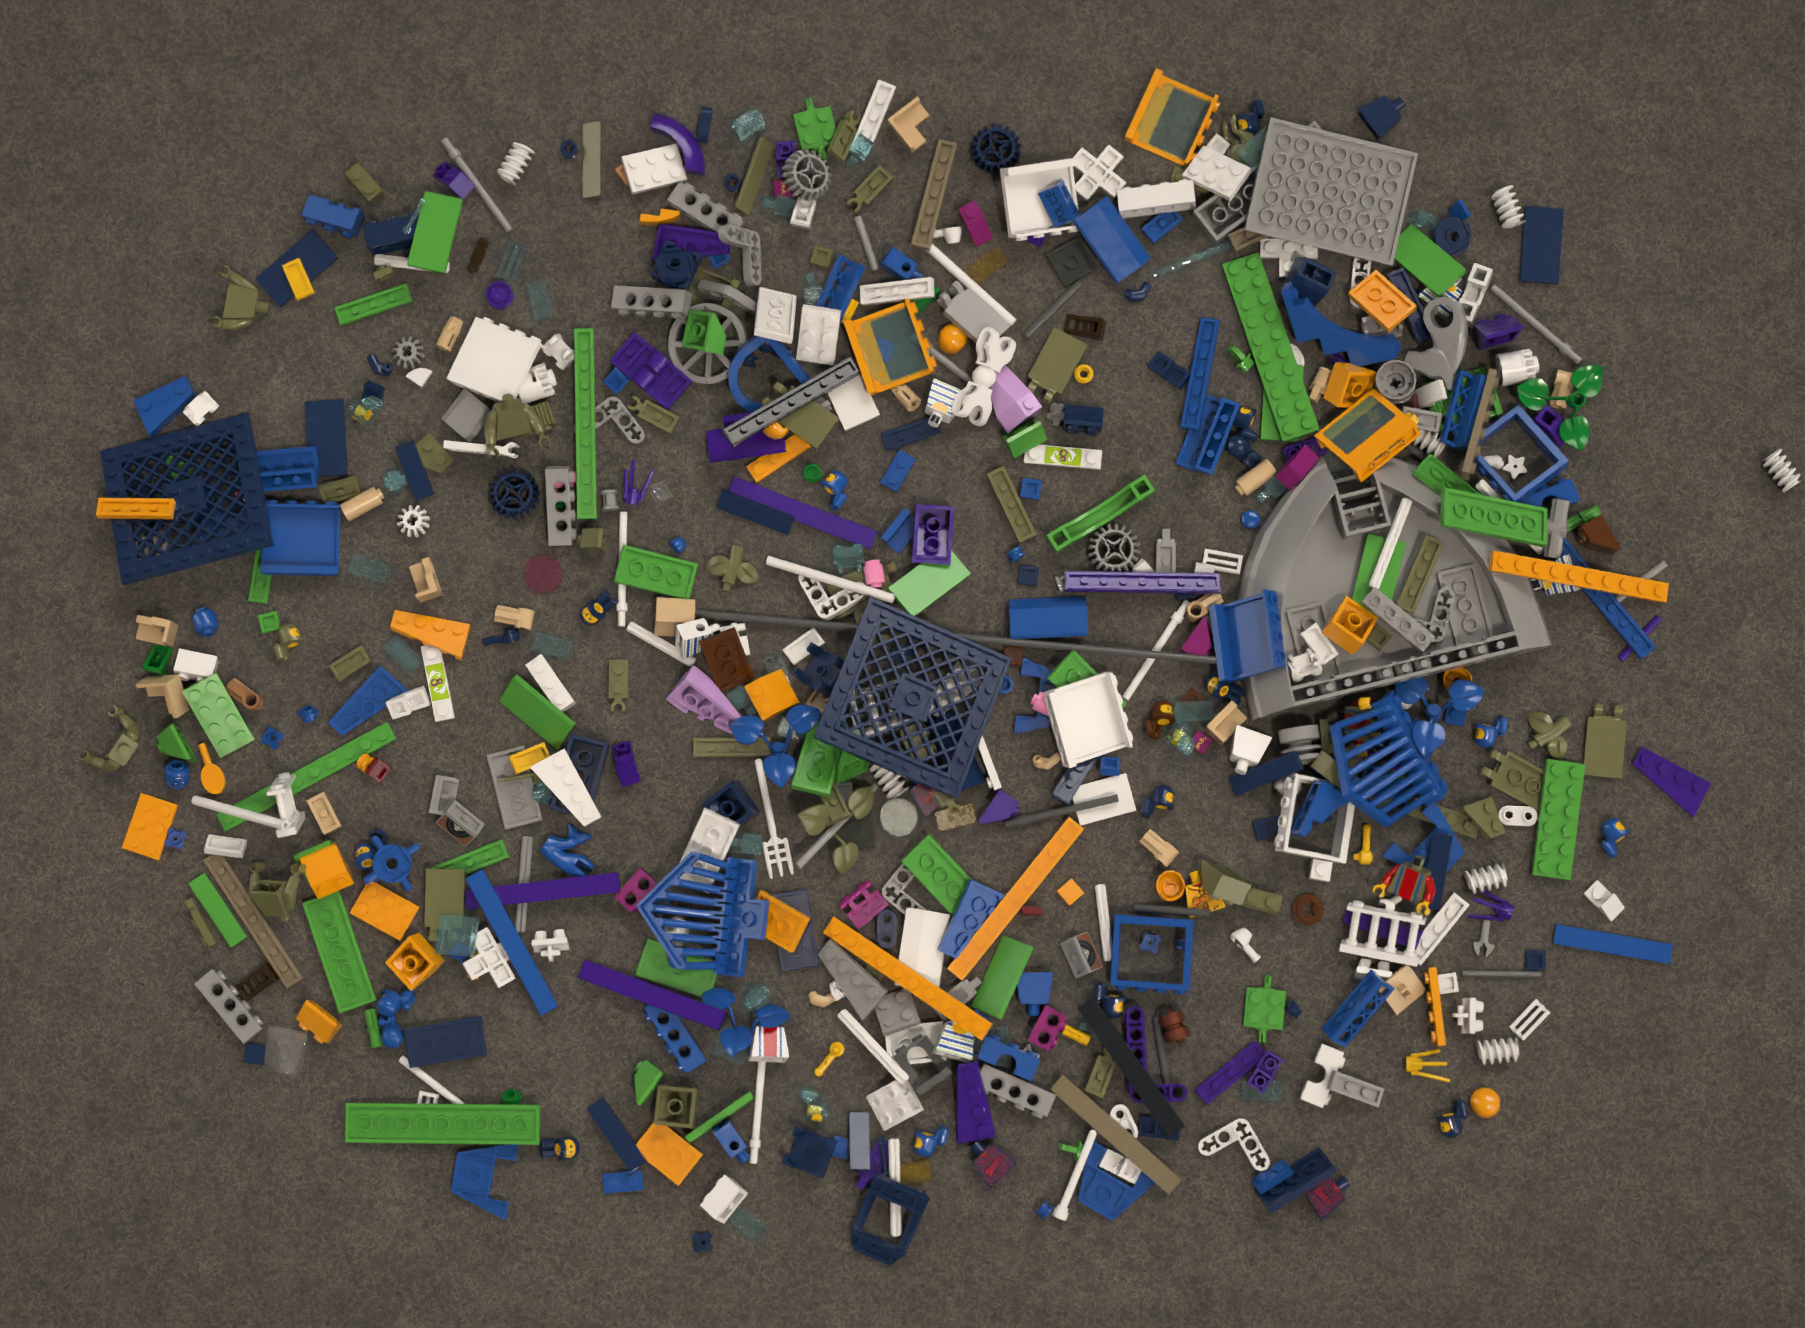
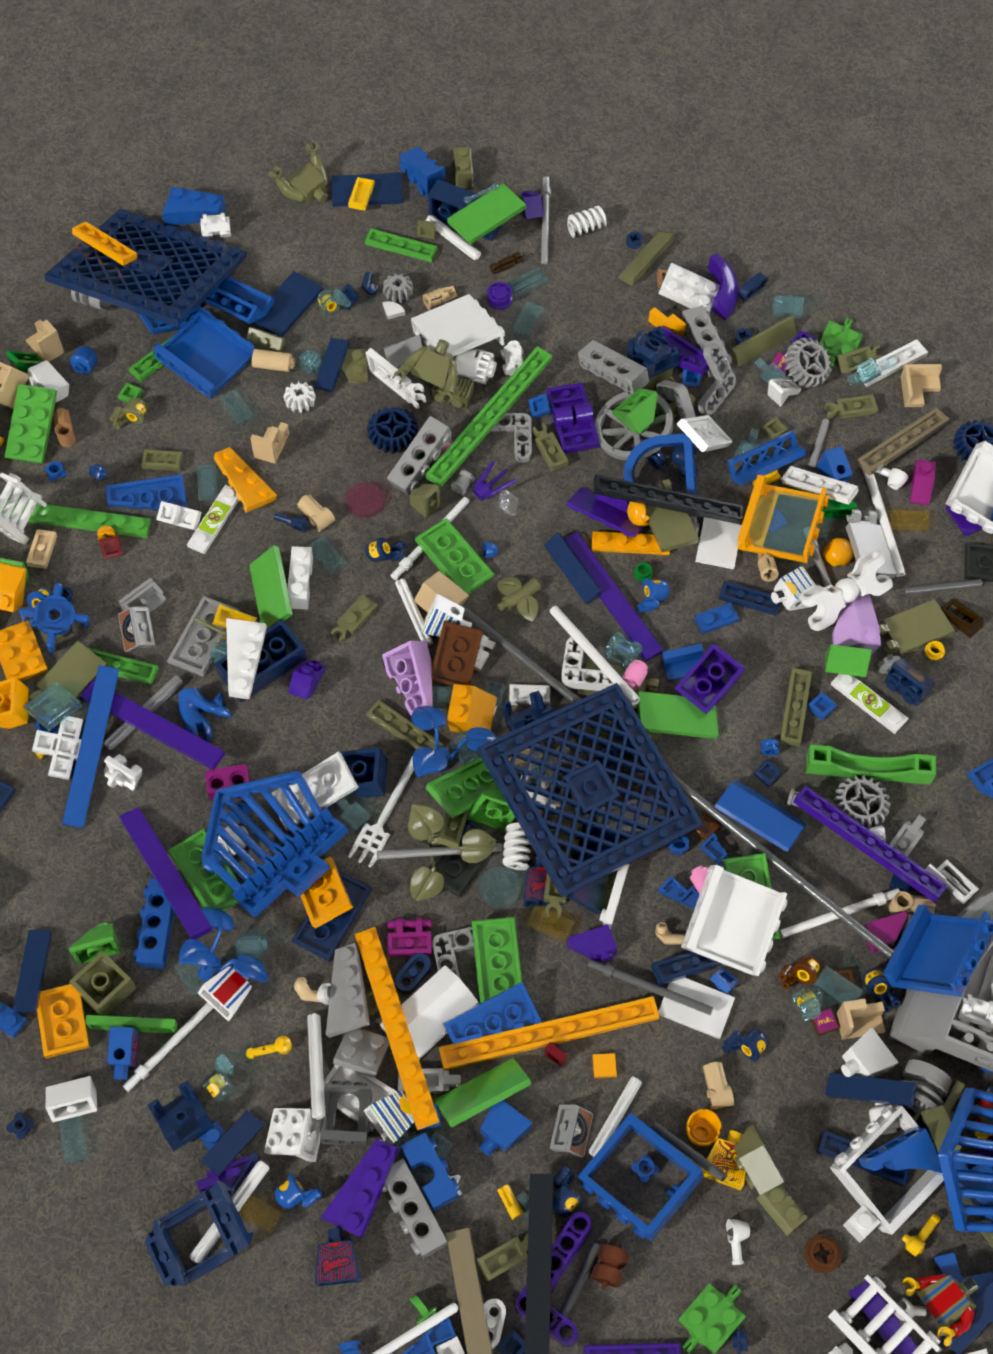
camera: 30 degrees right, 20 degrees down
(818, 334) = (729, 473): white plate -> none
(1043, 1026) = (484, 1168): magenta brick -> none

